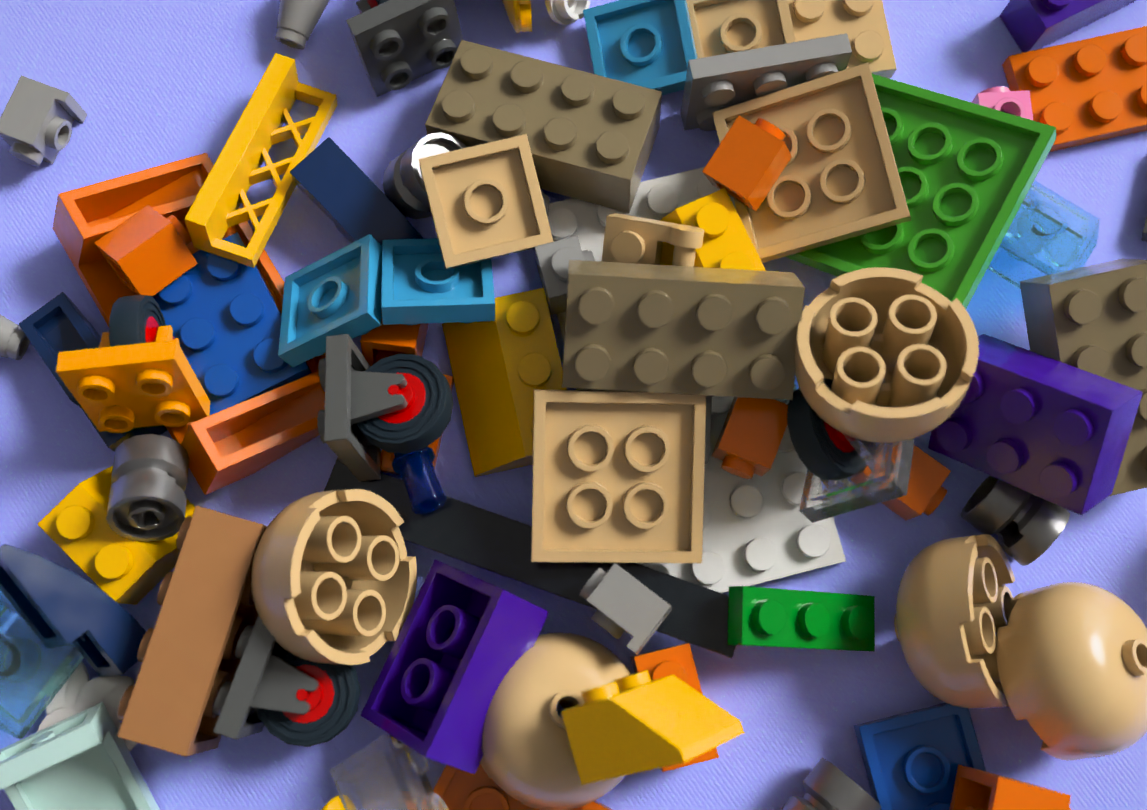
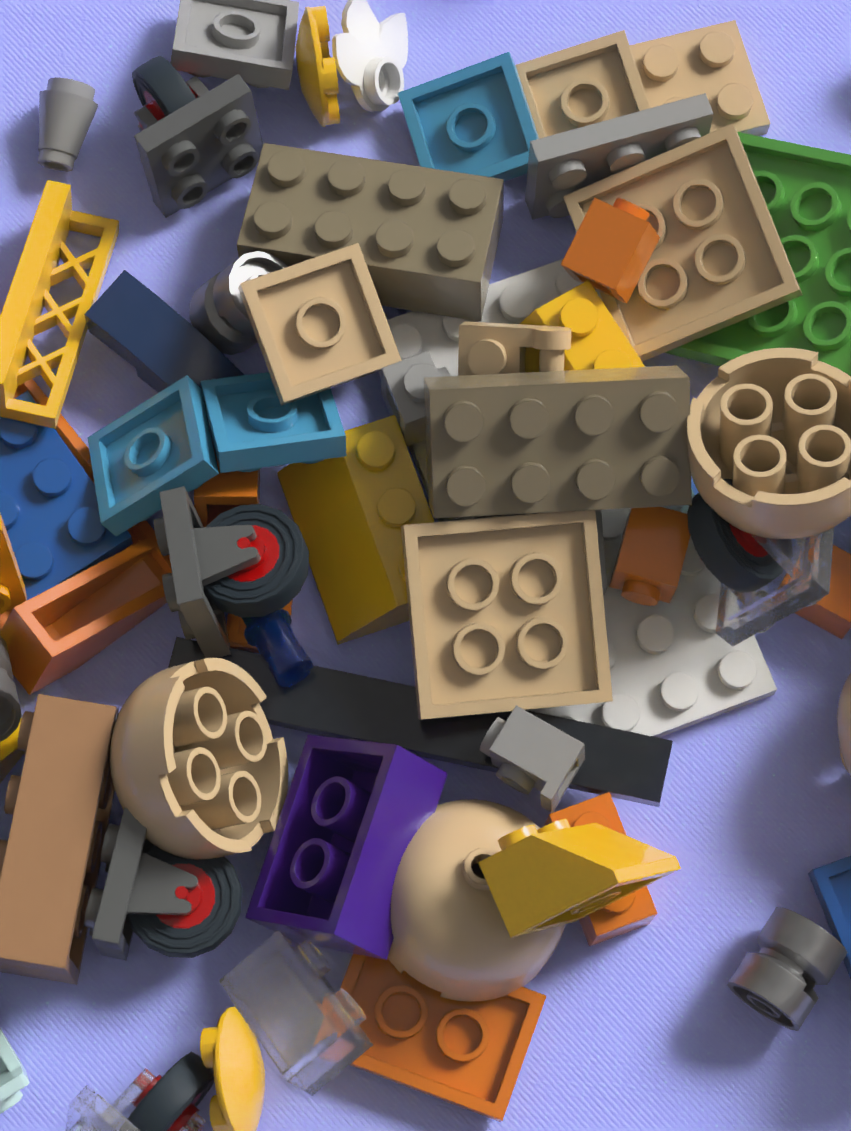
camera: 10 degrees left, 5 degrees down
(800, 619) = (733, 754): green plate -> none

